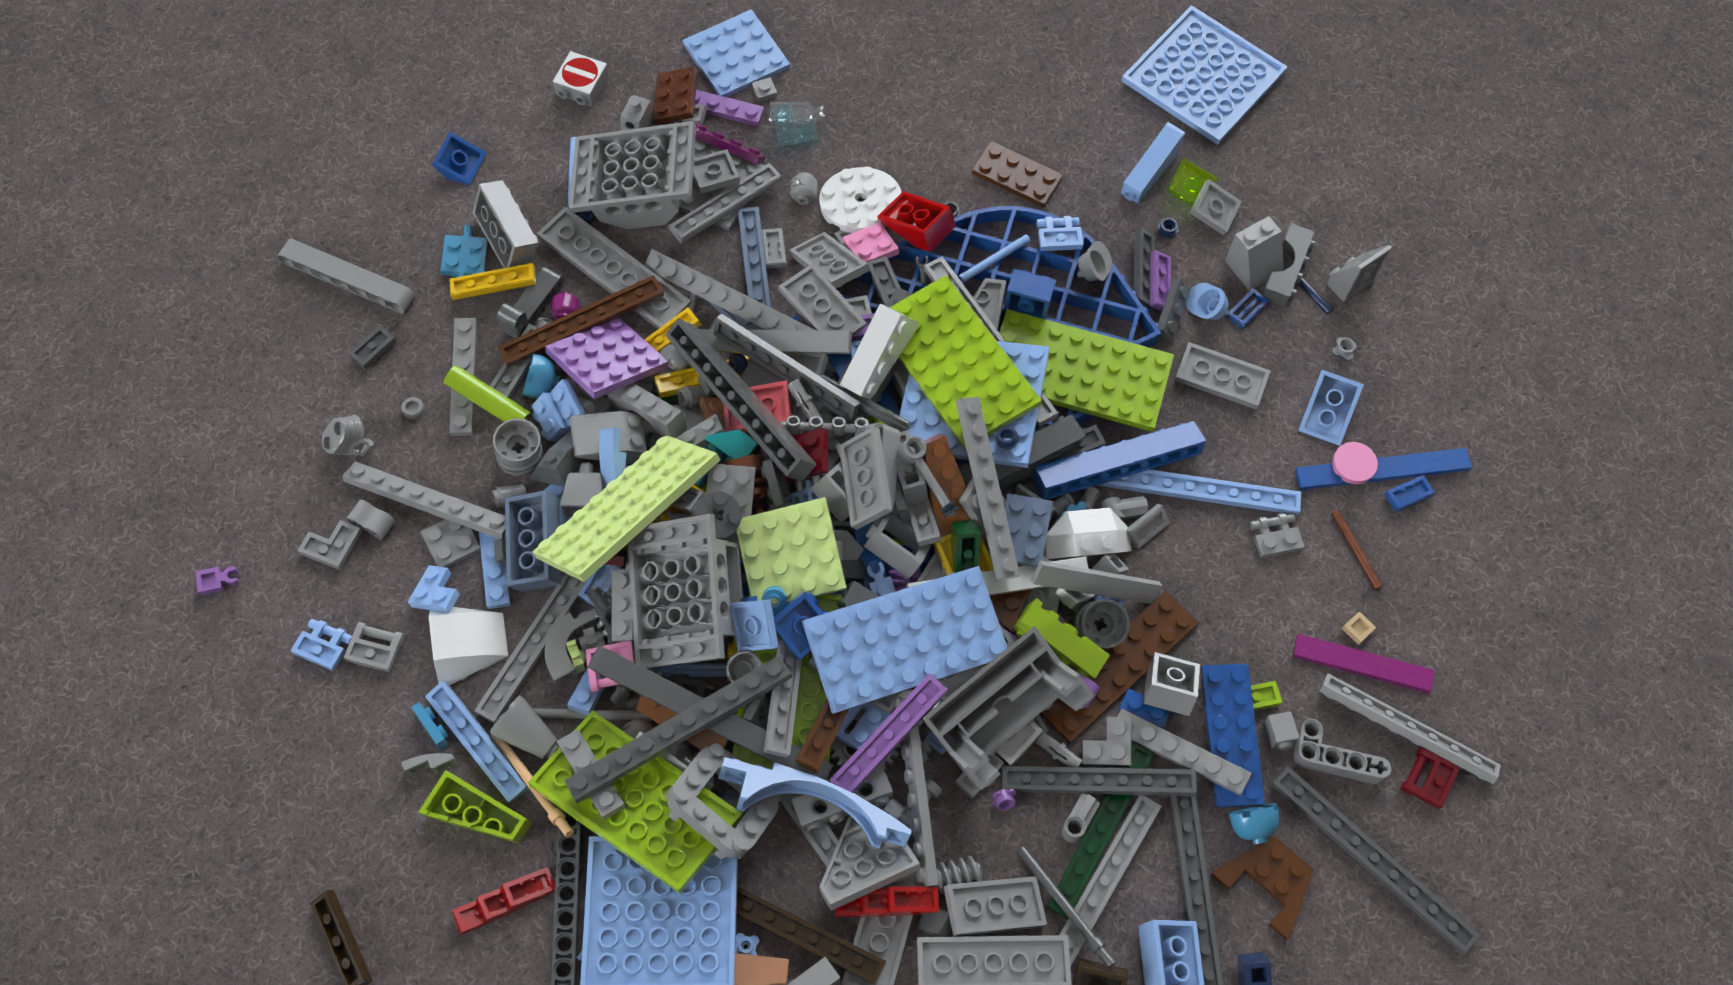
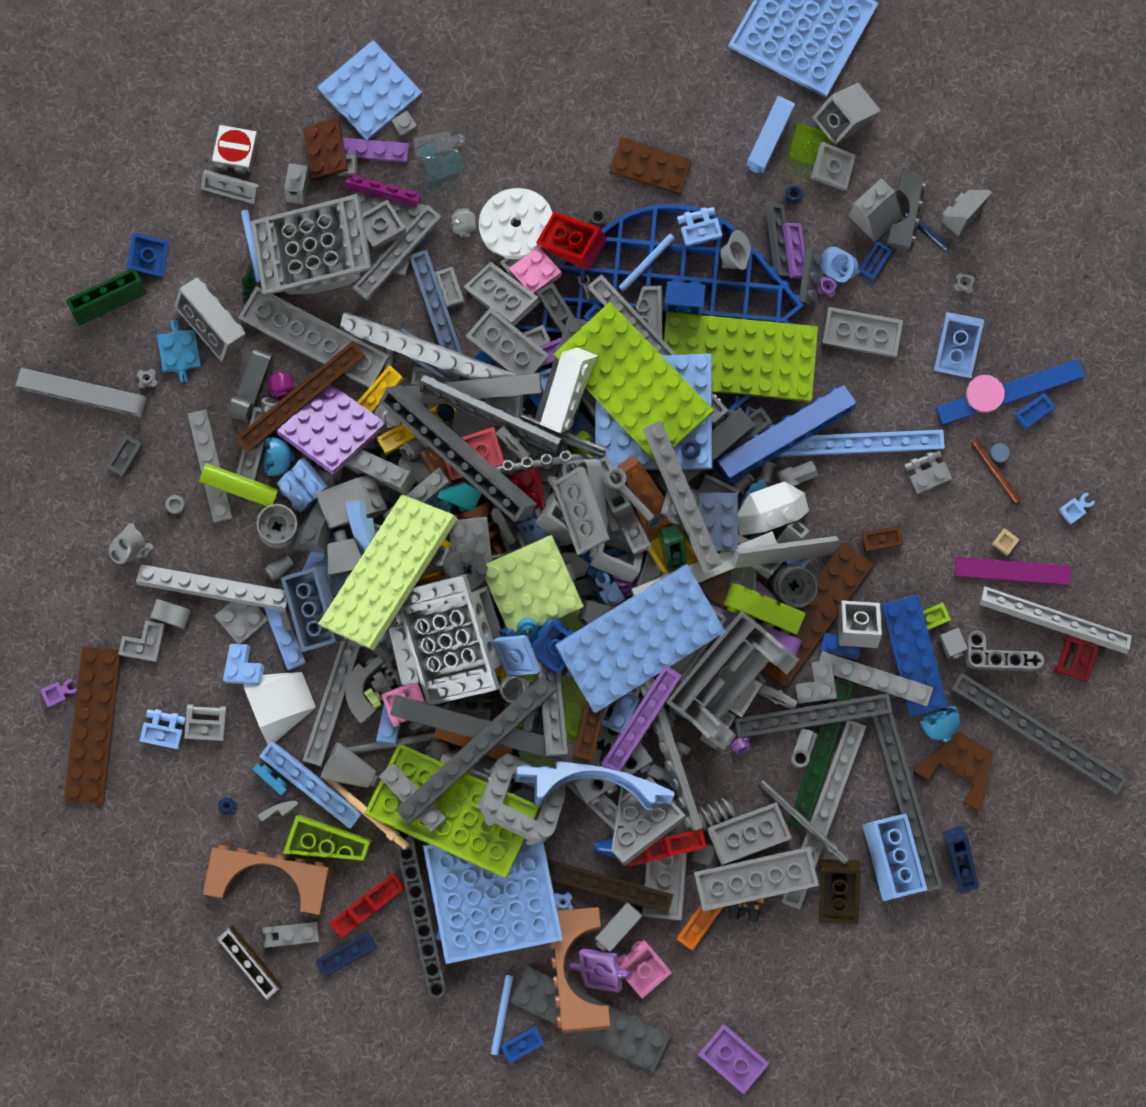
camera: 10 degrees left, 15 degrees up
(242, 626) = (92, 725): none -> reddish brown plate
(349, 815) = (227, 864): none -> nougat arch
(370, 753) = (222, 806): none -> dark blue plate
(402, 187) = (106, 296): none -> dark green brick
(402, 917) = (291, 934): none -> light grey plate
(421, 281) = (147, 383): none -> light grey plate
(462, 956) = (346, 954): none -> dark blue tile
(492, 281) = (212, 373): yellow tile -> none
(558, 204) = (248, 282): none -> dark green piece
(565, 112) = (229, 186): none -> light grey plate
(811, 889) = (604, 847): none -> blue cone
(1148, 526) = (819, 486): light grey plate -> none
(1190, 318) = (827, 282): none -> medium lavender plate
(1212, 596) = (882, 538): none -> reddish brown plate
(1237, 158) = (846, 113): none -> light grey slope
(1363, 531) = (999, 453): none -> sand blue tile
(1445, 608) = (1074, 510): none -> light blue plate

